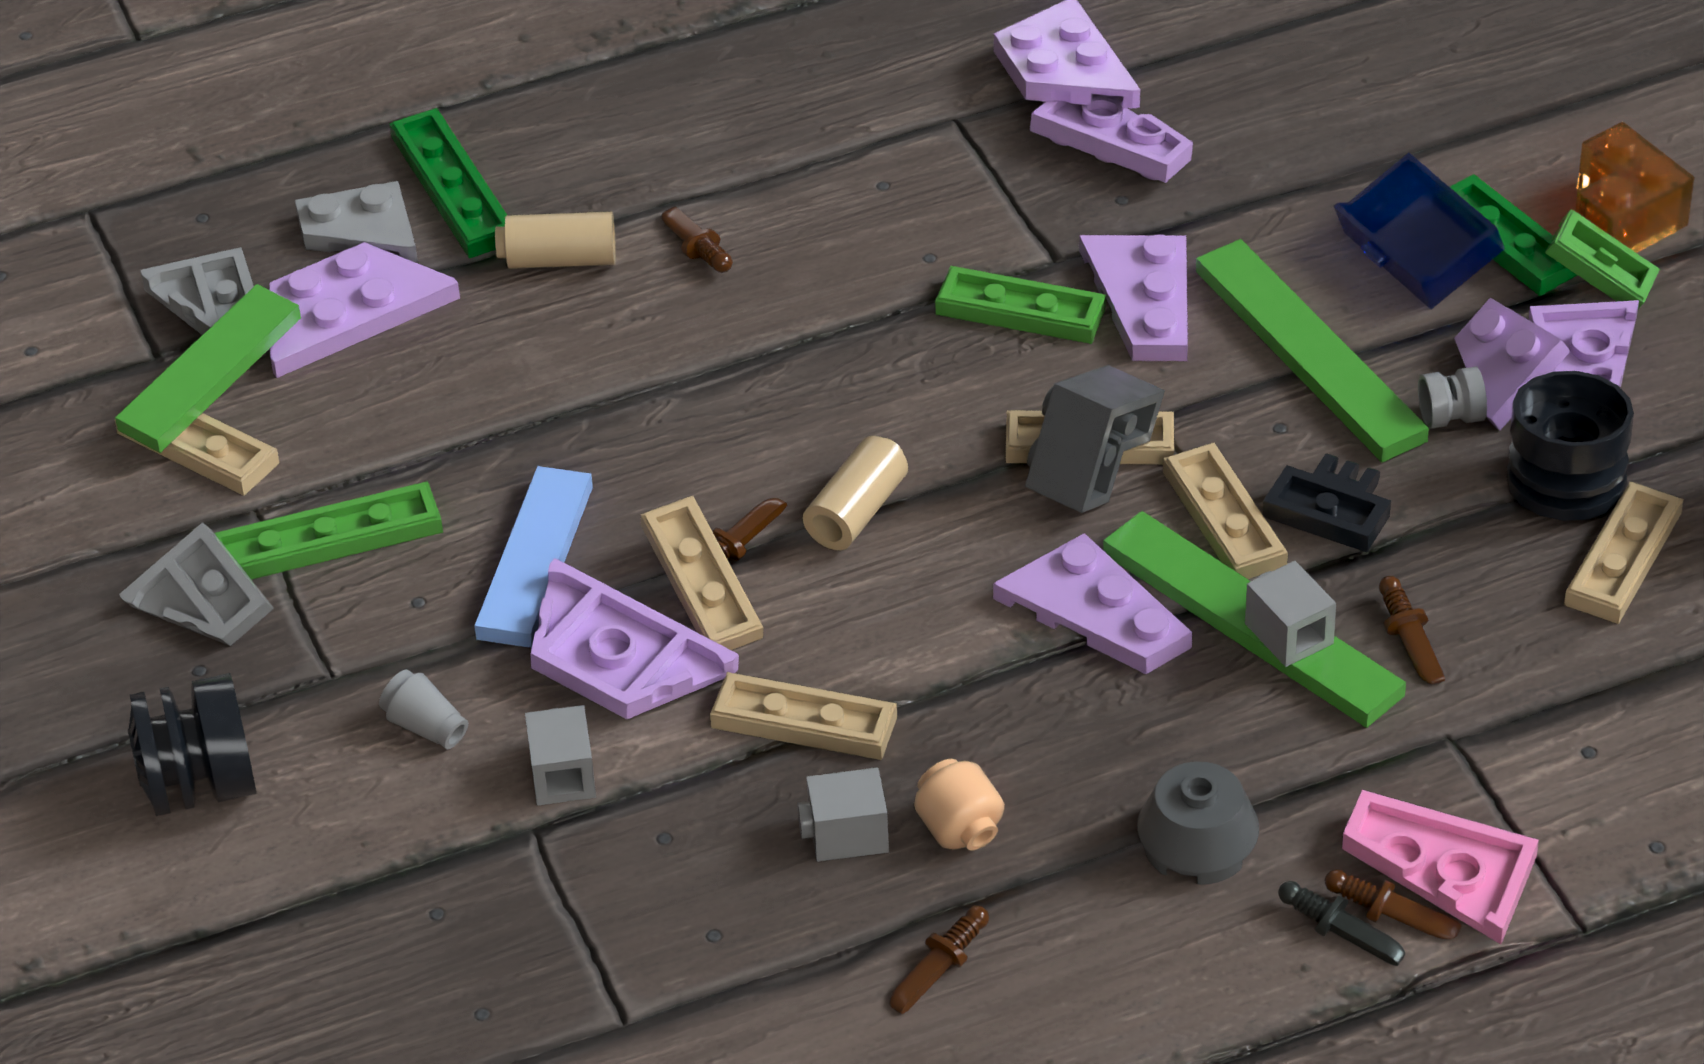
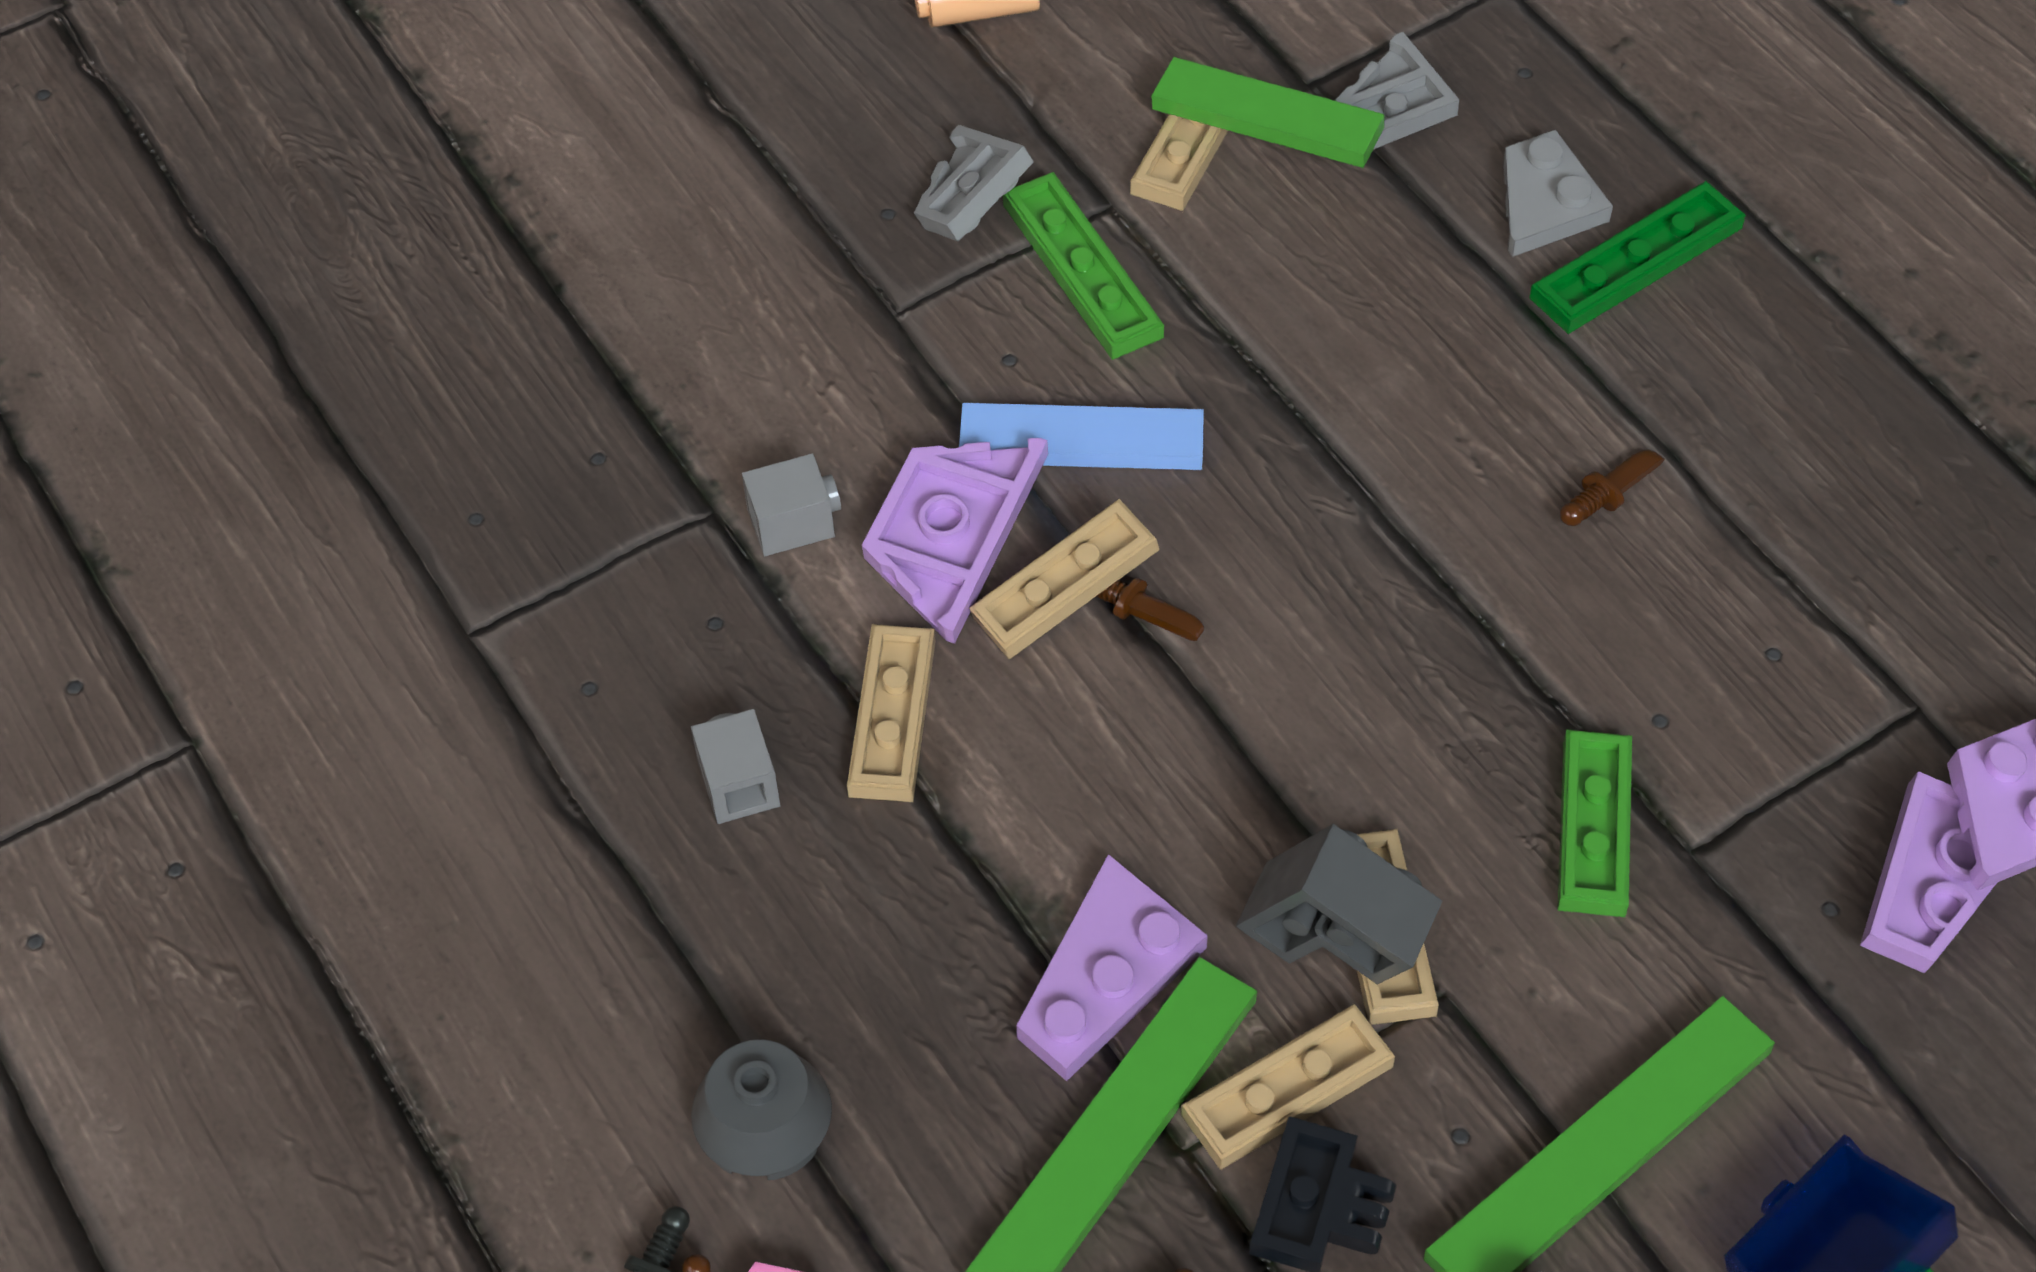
camera: 80 degrees right, 10 degrees up
(192, 744) = (736, 208): black wheel -> none
(353, 300) = (1418, 207): lavender wing -> none
(422, 709) = (840, 383): light grey cone -> none
(557, 240) = (1555, 359): tan brick -> none
(855, 492) = (1222, 698): tan brick -> none
(944, 953) = (564, 891): reddish brown piece -> none
(959, 804) = (756, 865): light nougat head -> none
(1145, 290) = (1655, 951): lavender wing -> none
(1290, 613) = (1081, 1157): light grey brick -> none

